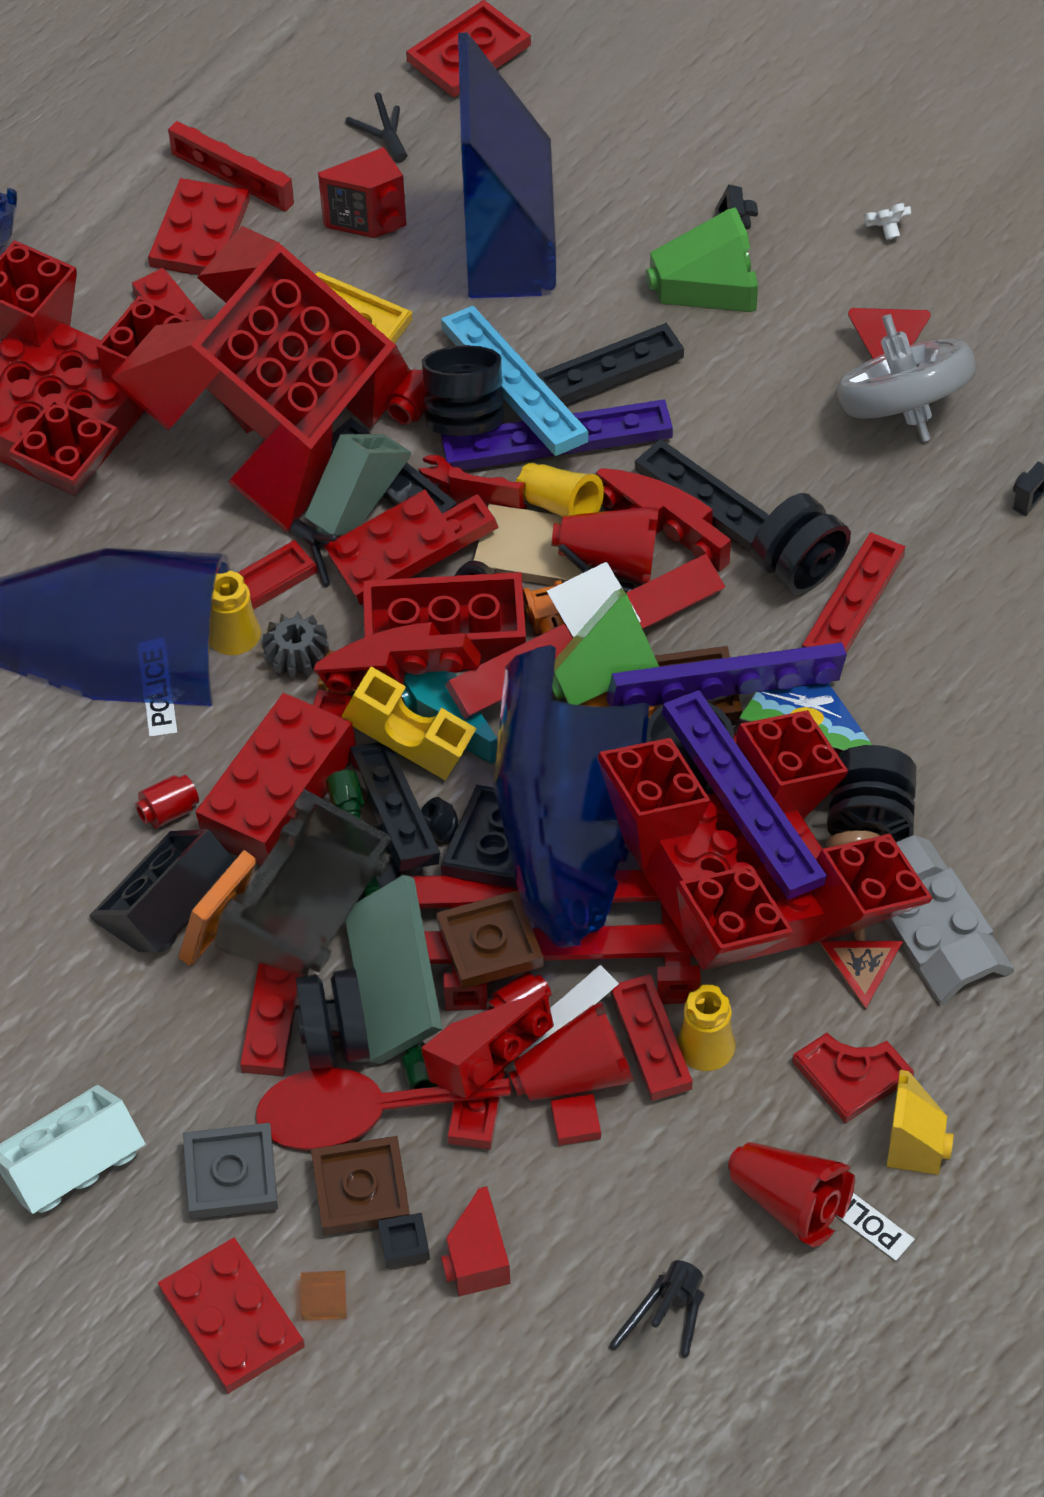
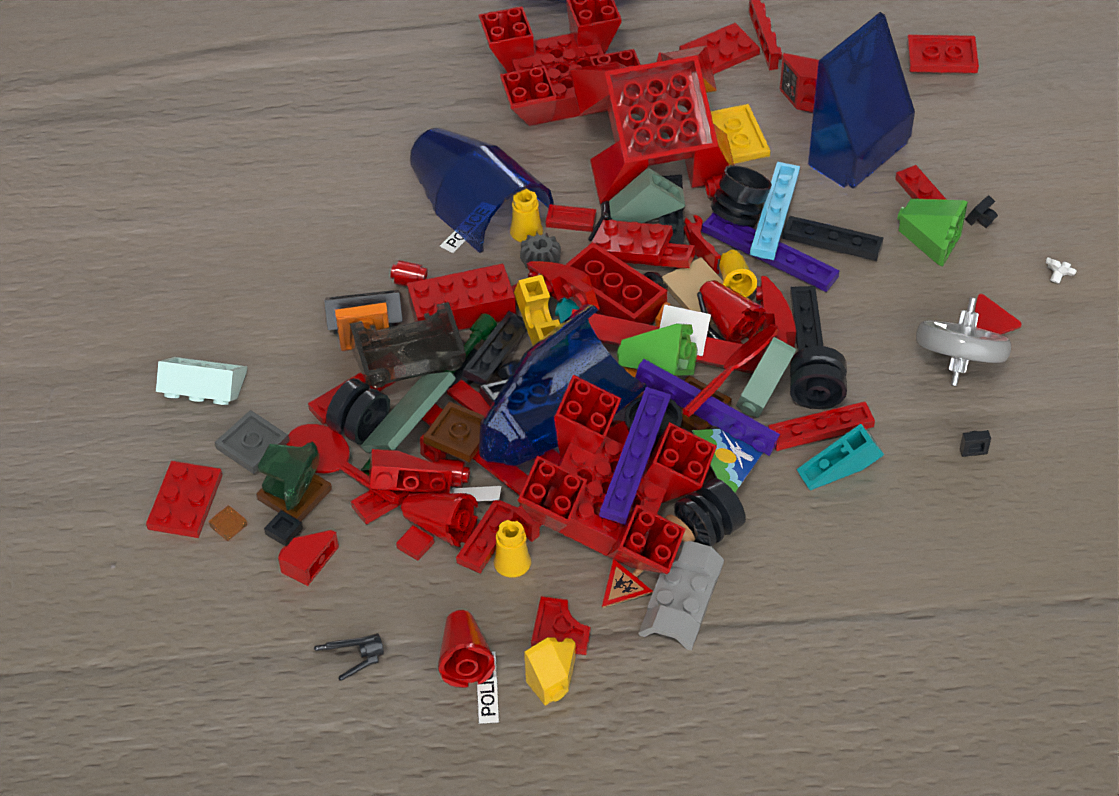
camera: 45 degrees right, 5 degrees down
(348, 1166) = (289, 471): none -> clear green piece
(630, 232) = (917, 184): none -> red plate
(700, 582) = (738, 358): none -> red piece
(746, 589) = (765, 377): none -> sand green slope
(921, 620) = (842, 458): none -> teal slope

